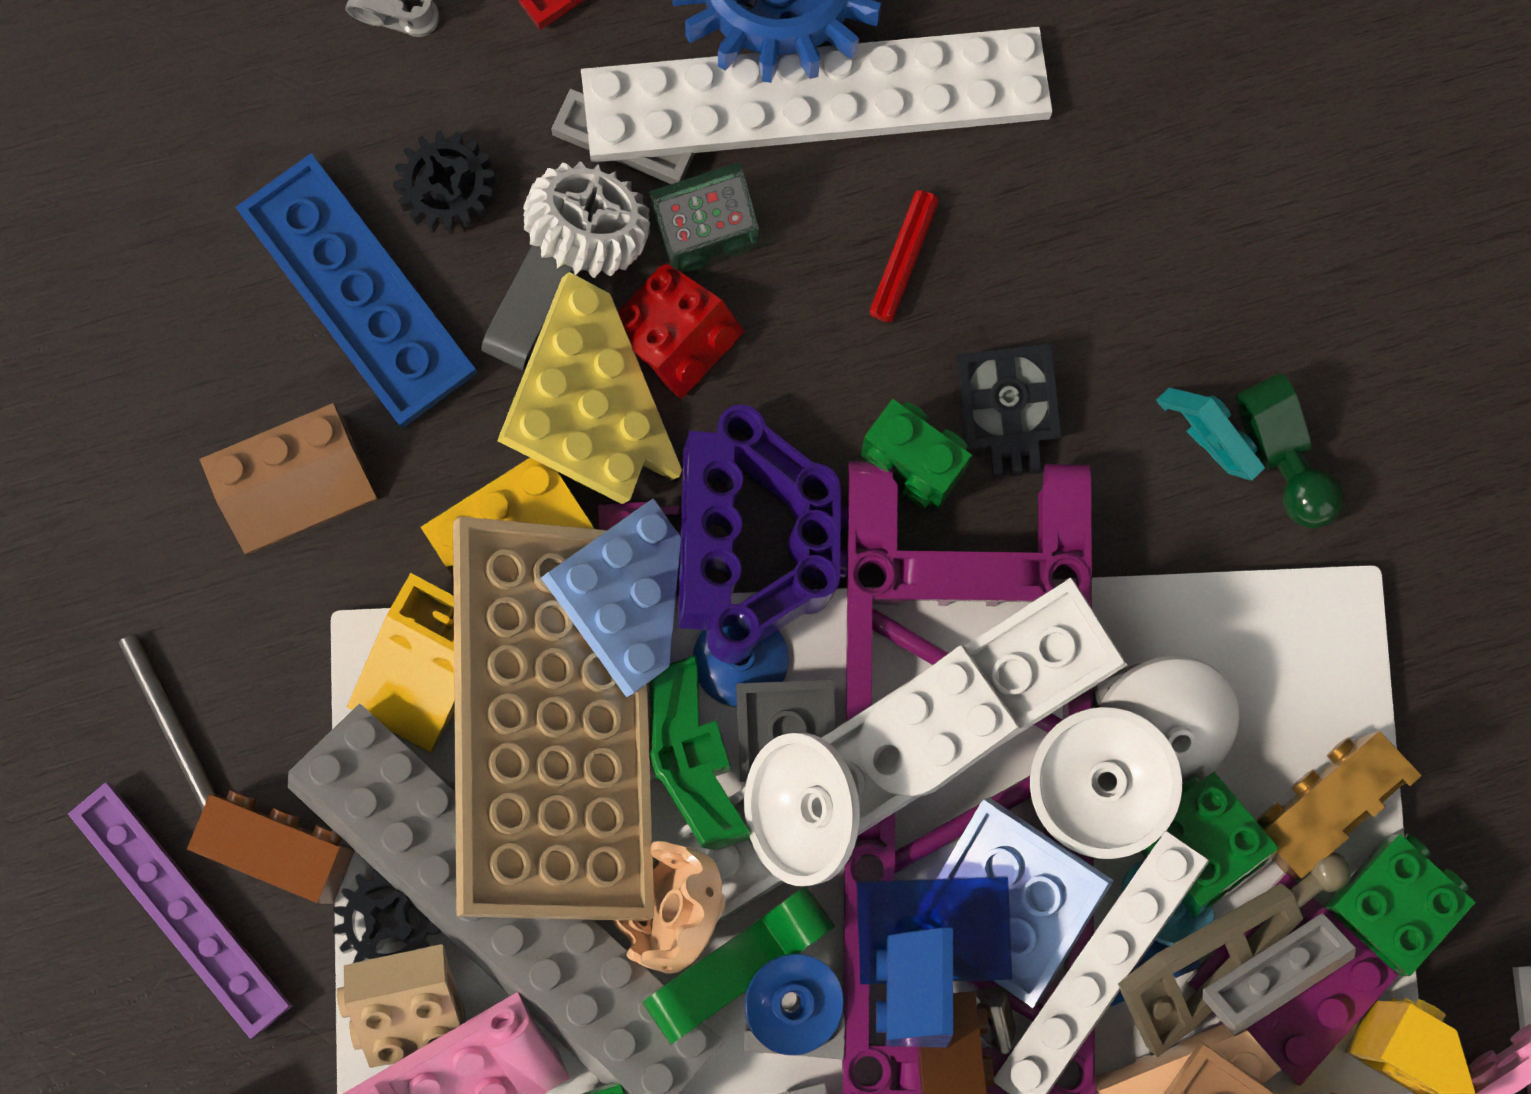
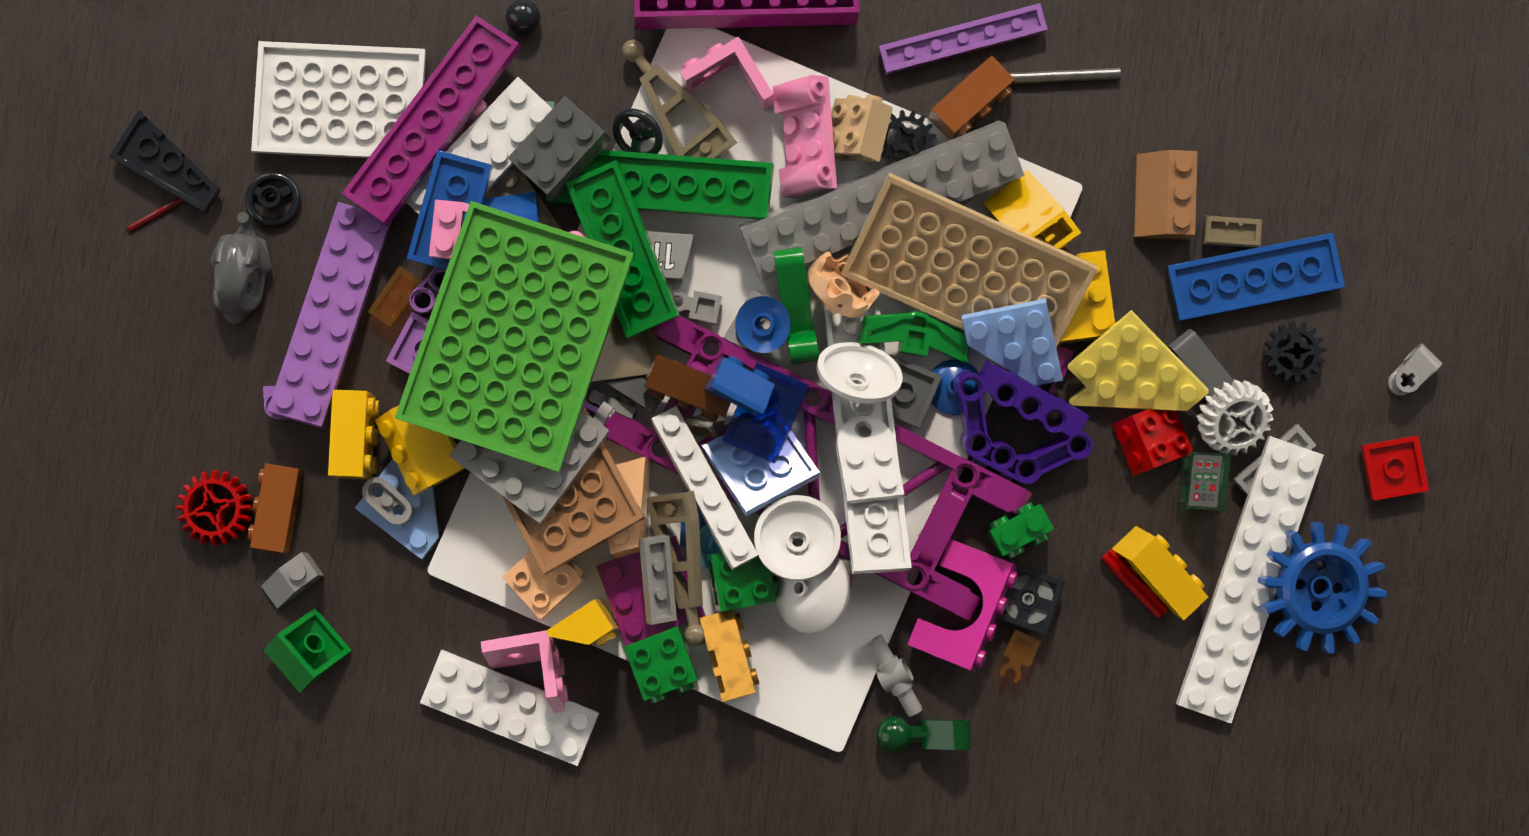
camera: 120 degrees right, 5 degrees up
(302, 355) = (1232, 231): none -> dark tan plate
(868, 223) = (1162, 571): none -> yellow wedge
(1089, 373) = (1021, 651): none -> clear orange plate
(1130, 454) = (967, 645): none -> dark pink arch
(1214, 431) = (963, 699): teal wing -> none
(1224, 540) = (894, 675): none -> light grey pin

